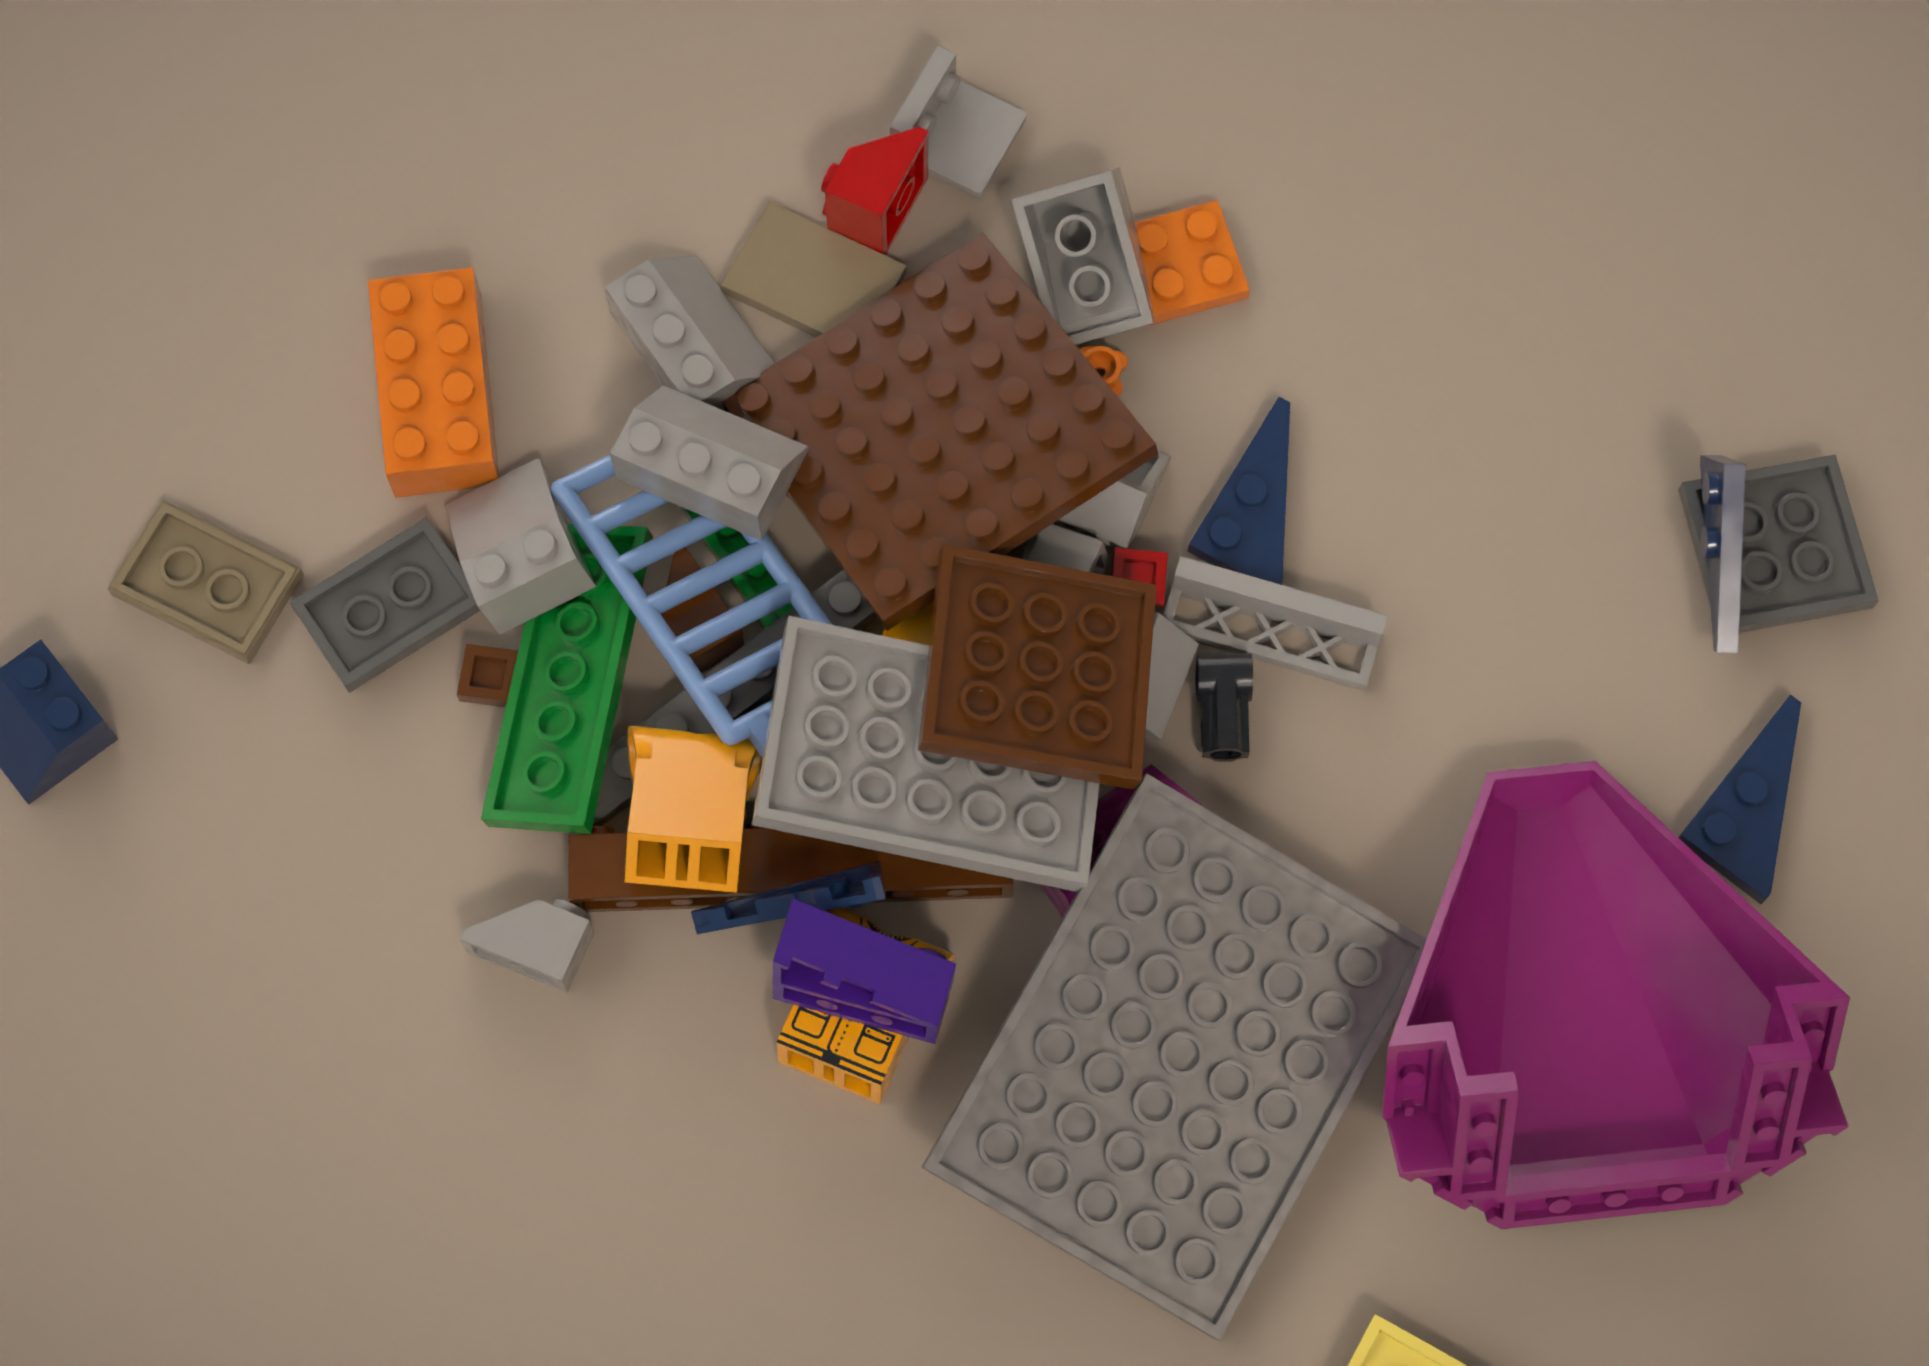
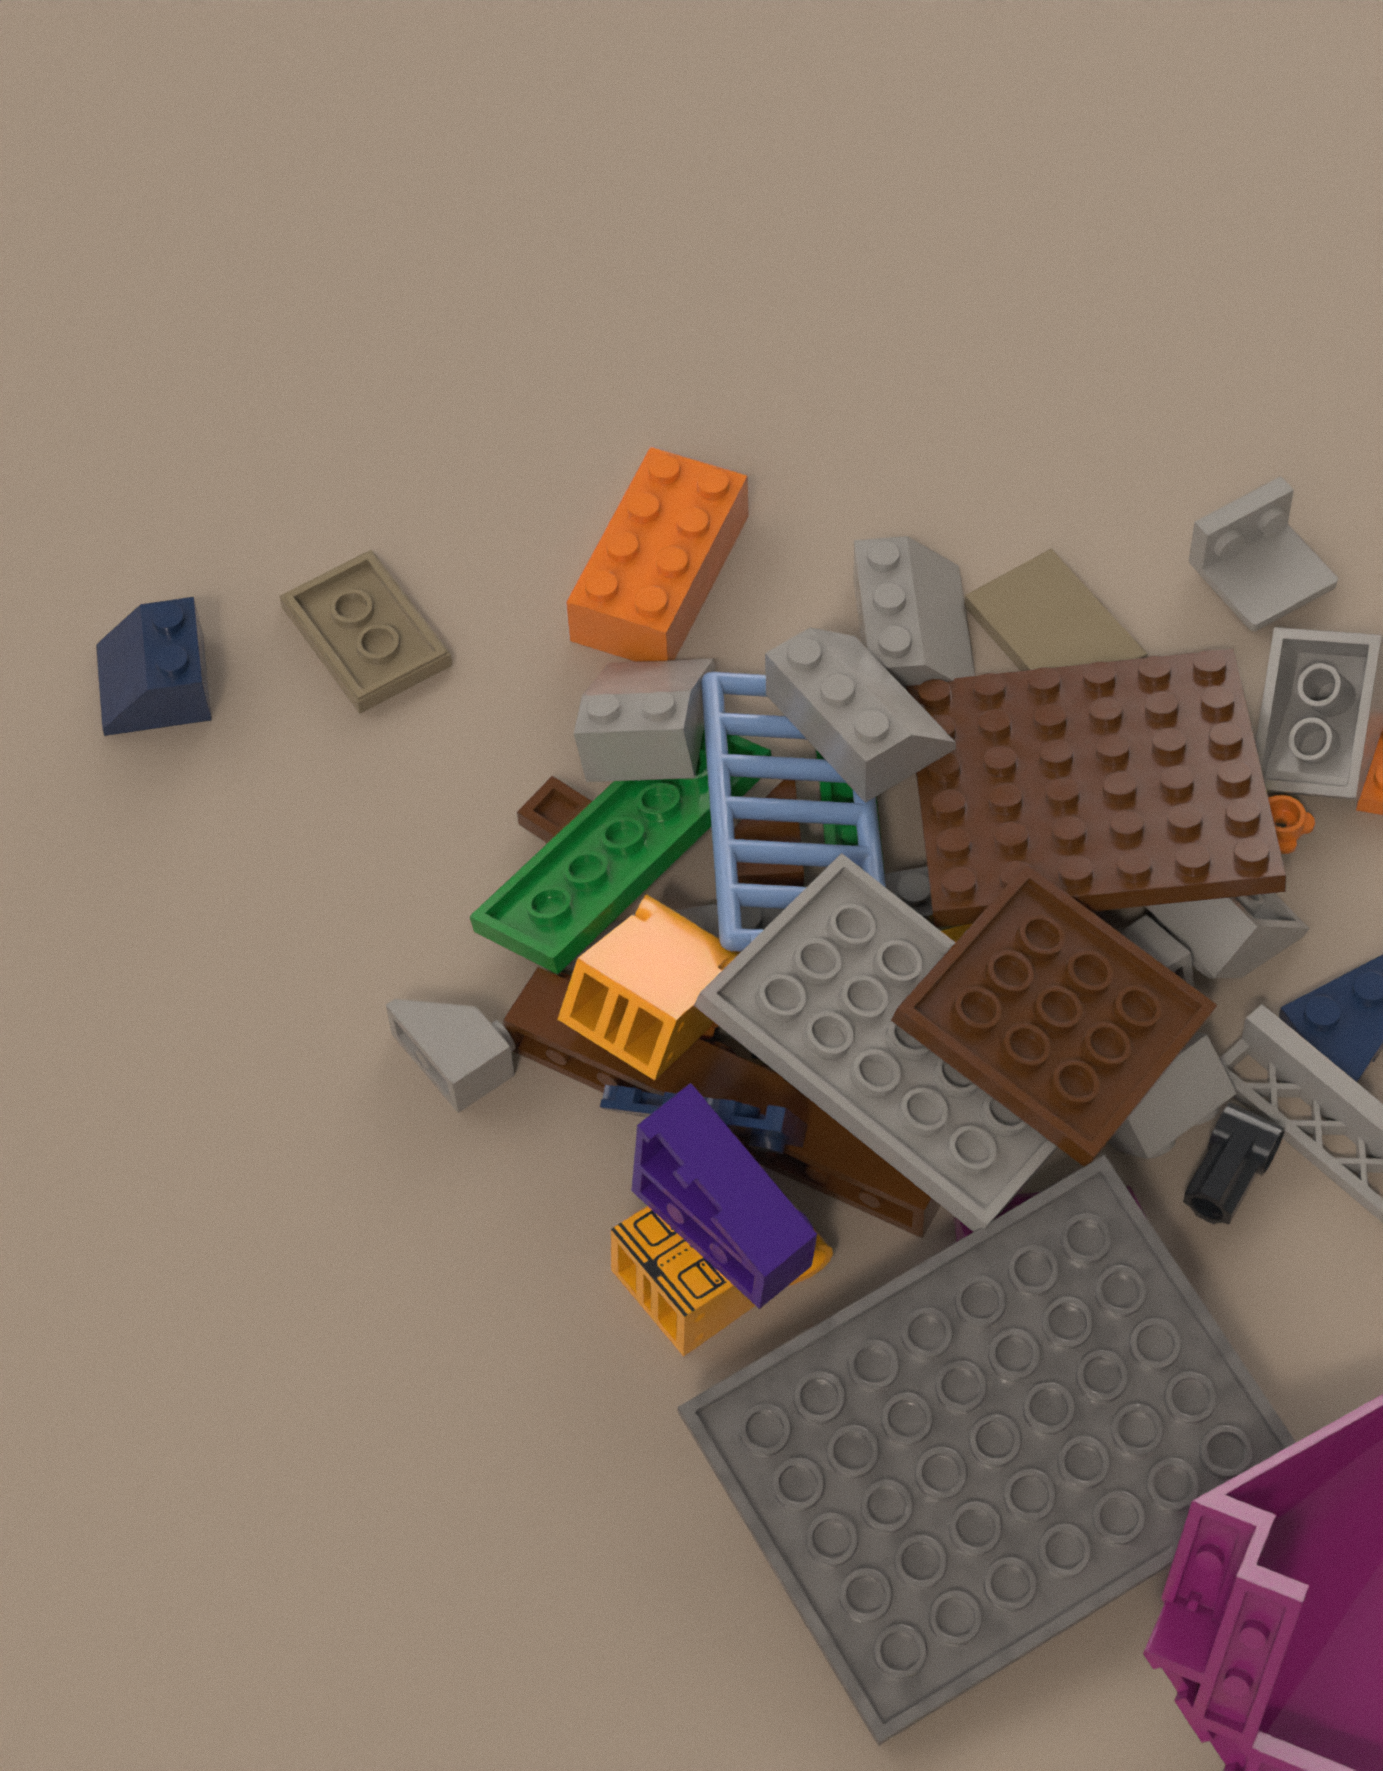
camera: 35 degrees right, 15 degrees down
(386, 604) = (502, 715): dark grey plate -> none
(876, 188) = (1156, 570): red slope -> none
(1142, 567) = (1229, 1013): red plate -> none

